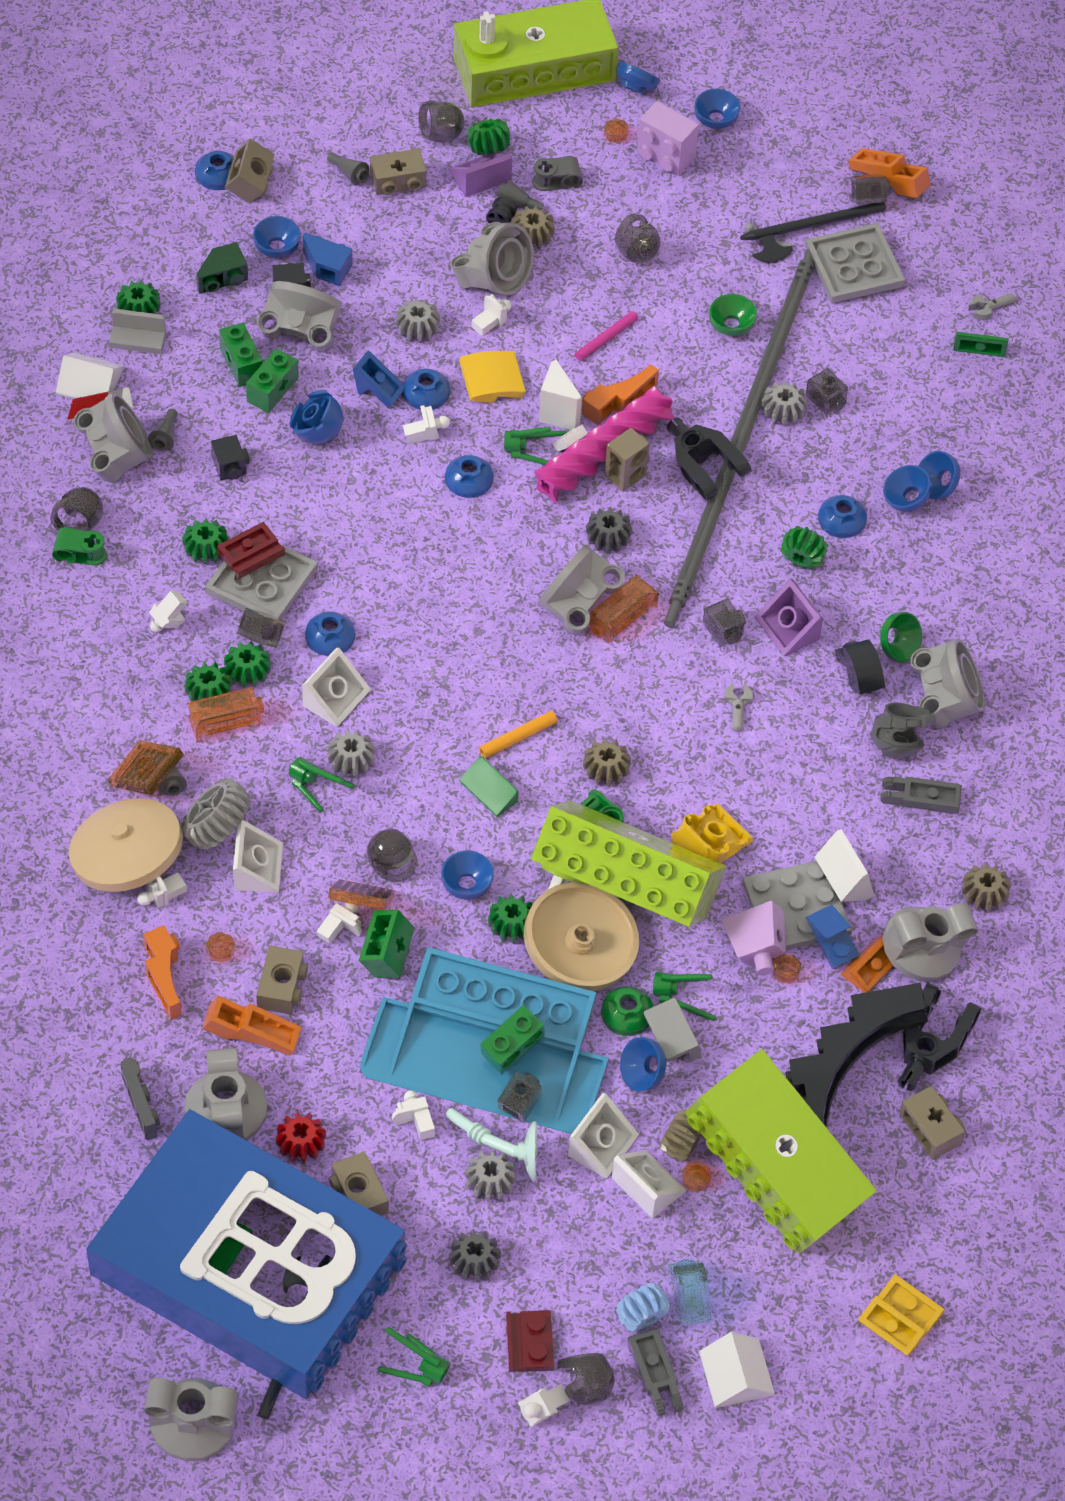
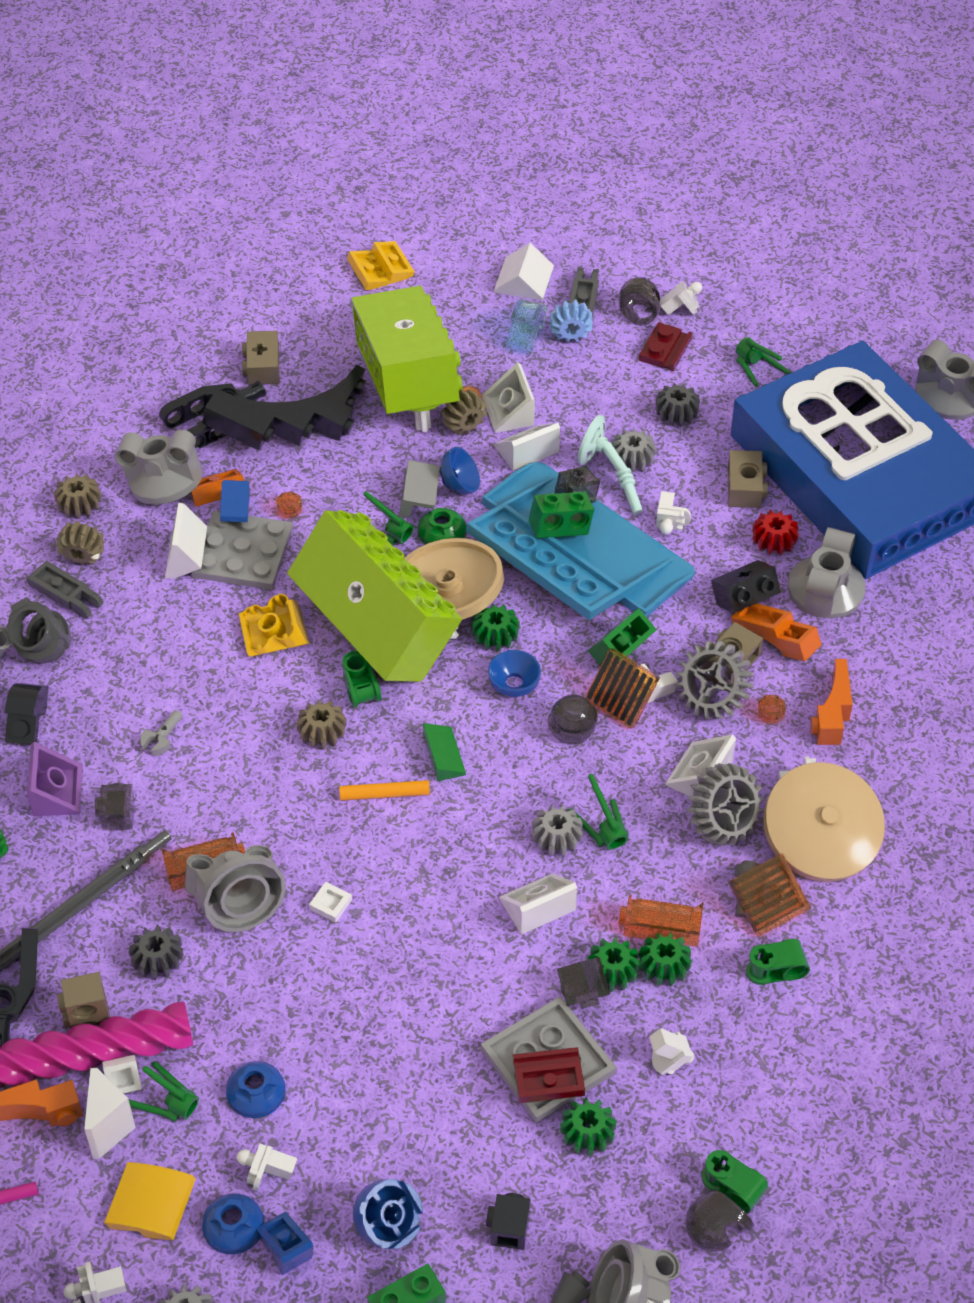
camera: 150 degrees left, 5 degrees down
(114, 719) = (780, 960): none -> green piece
(139, 1097) = (901, 613): dark grey hinge -> none
(280, 928) = (720, 671): none -> light grey gear
(299, 1053) = (745, 586): none -> black brick
(325, 641) = (507, 982): blue piece -> none
(502, 627) = (330, 902): none -> white tile
(758, 935) = (295, 521): lavender torso -> none
(938, 830) = (80, 543): none -> dark tan gear

